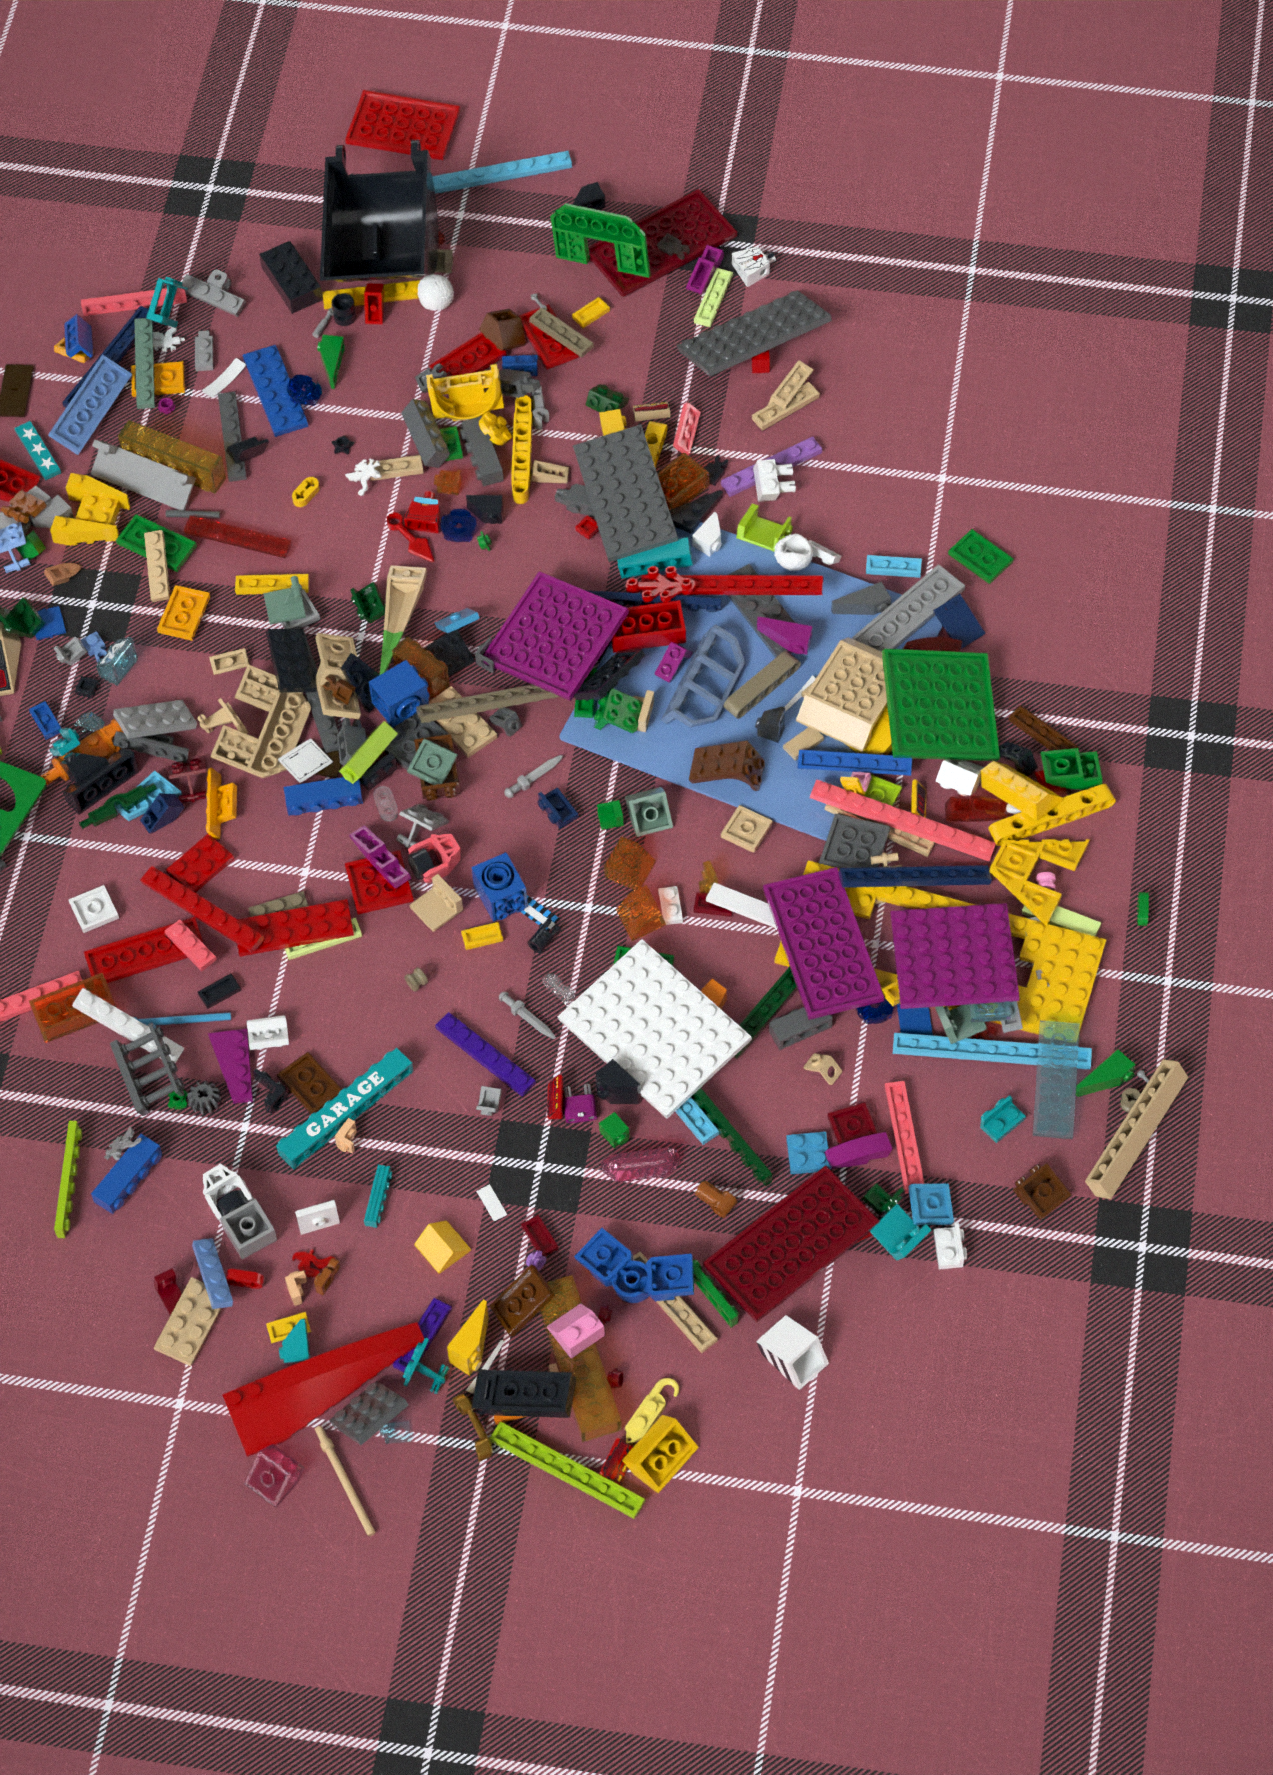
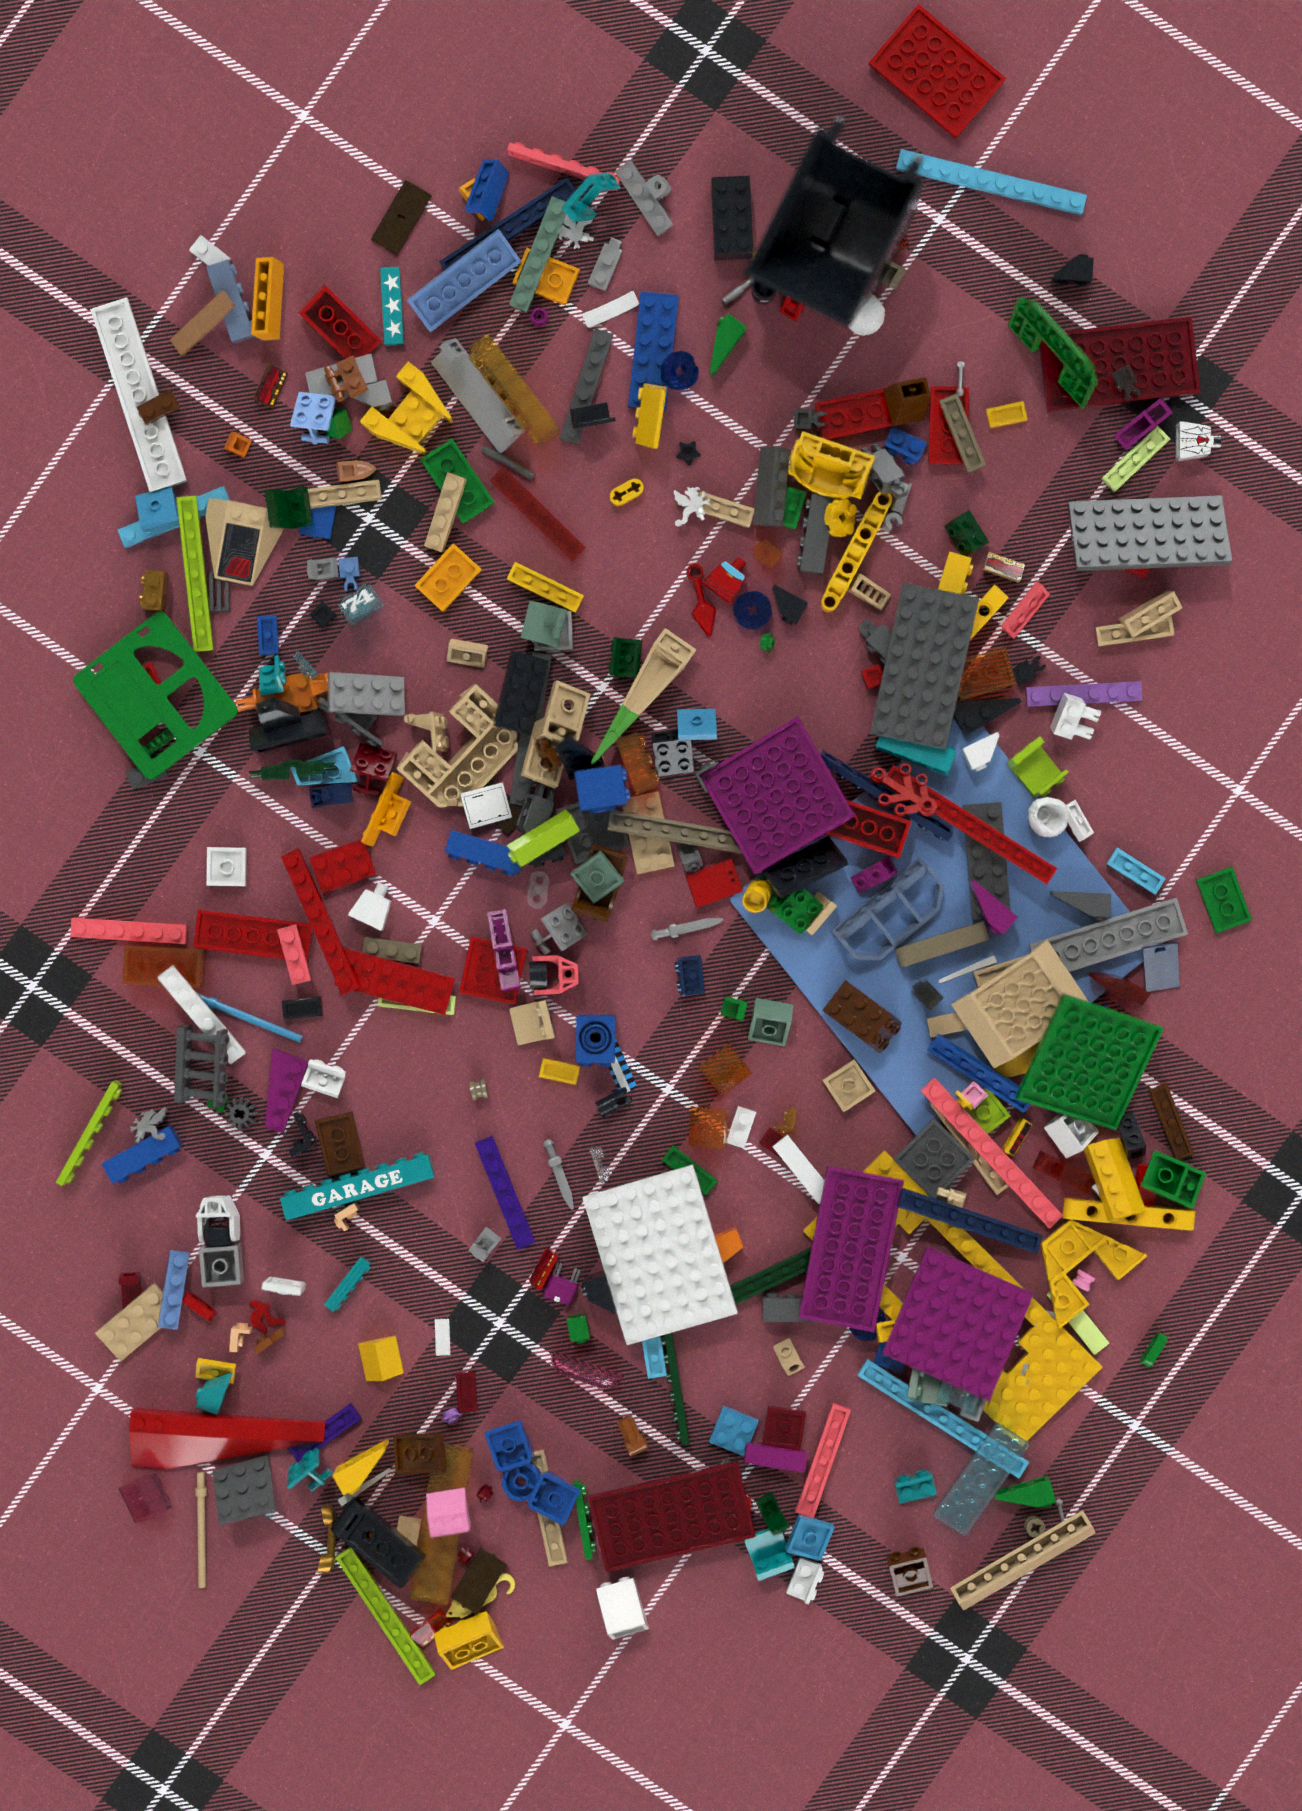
camera: 25 degrees right, 30 degrees up
(63, 593) = (344, 494): none -> tan tile
(243, 882) = (372, 907): none -> white torso
(296, 424) = (649, 415): none -> yellow slope
(539, 732) = (714, 883): none -> red container
(580, 715) = (757, 895): none -> yellow wheel
(640, 1393) = (478, 1580): none -> dark brown piece

